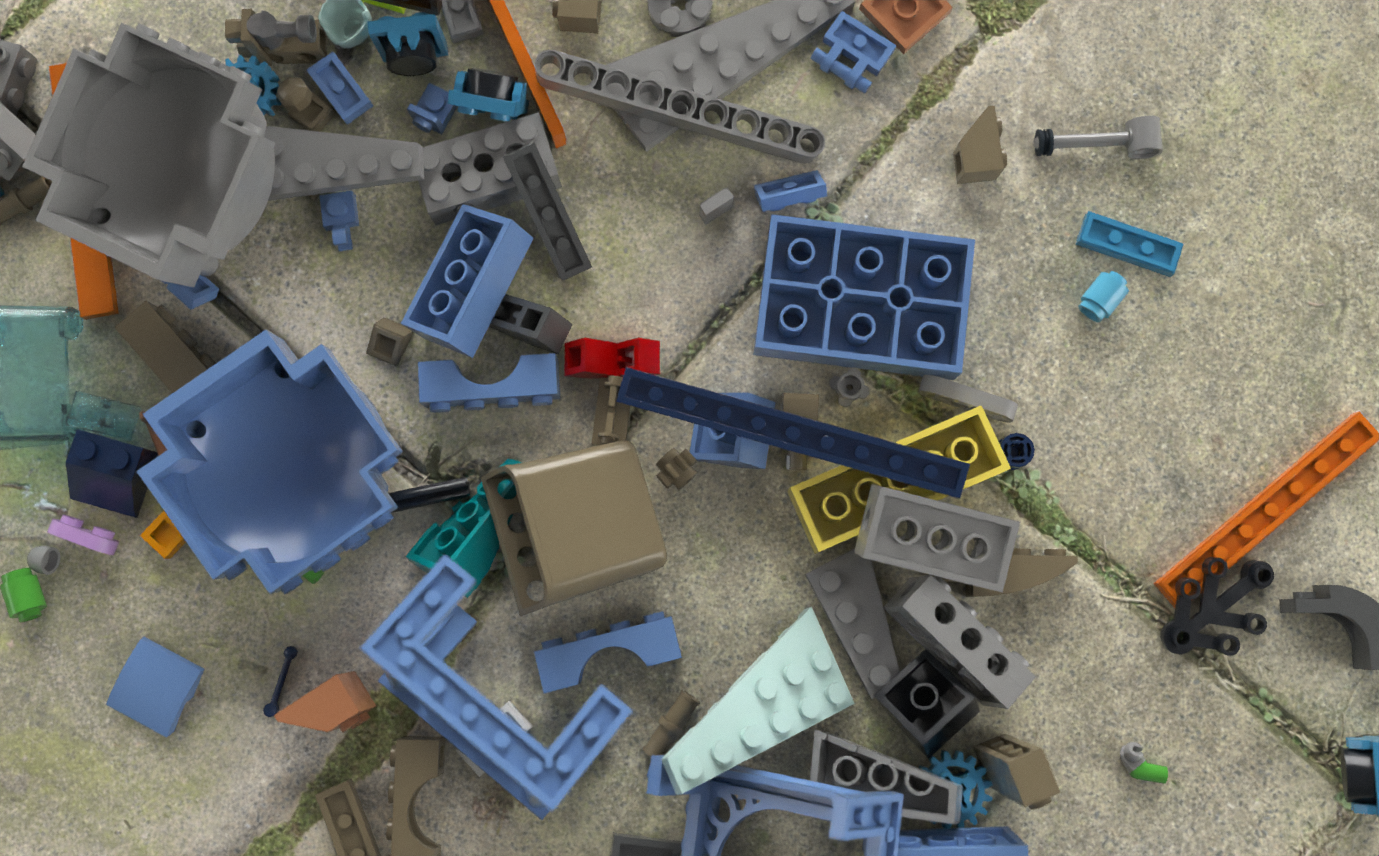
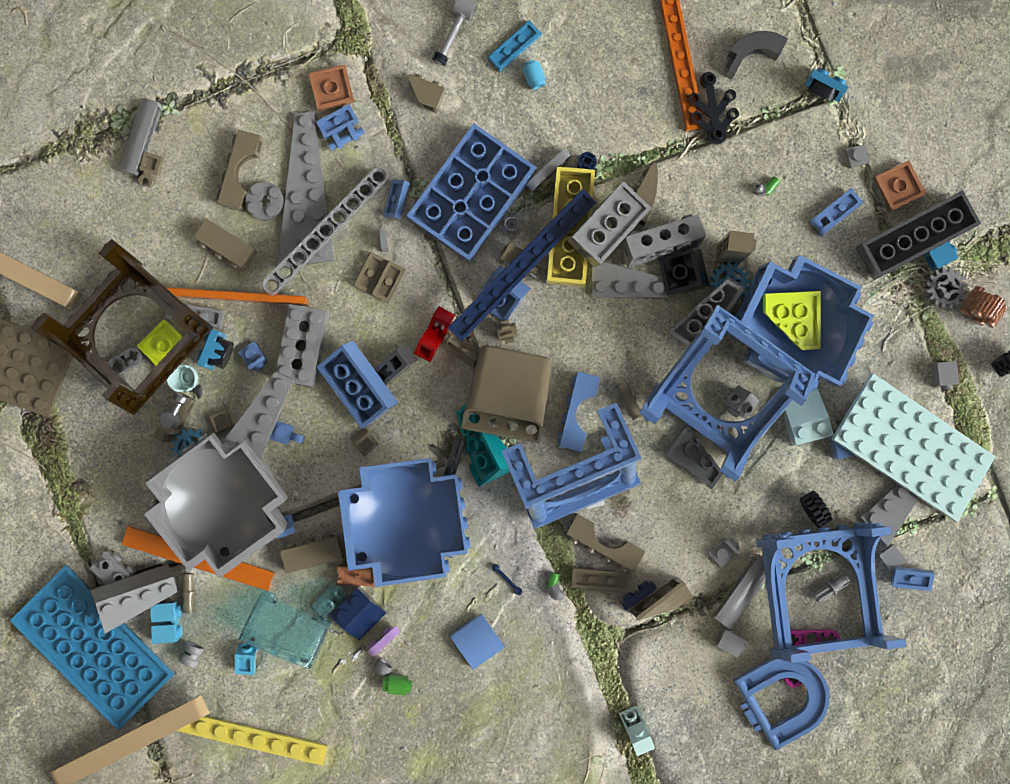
camera: 60 degrees left, 5 degrees up
(163, 536) = (404, 599): light orange plate -> none
(294, 94) = (208, 424): dark tan tile -> none
(301, 764) = (553, 588): none -> arm
(332, 705) = (534, 557): nougat slope -> none
(339, 87) = (216, 399): medium blue plate -> none
(491, 92) = (265, 323): dark azure piece -> none
(532, 380) = (404, 423): medium blue arch -> none
(547, 211) = (343, 326): dark grey plate -> none
(656, 229) = (379, 277): none -> dark tan slope
(771, 701) = (643, 343): light aqua wing -> none

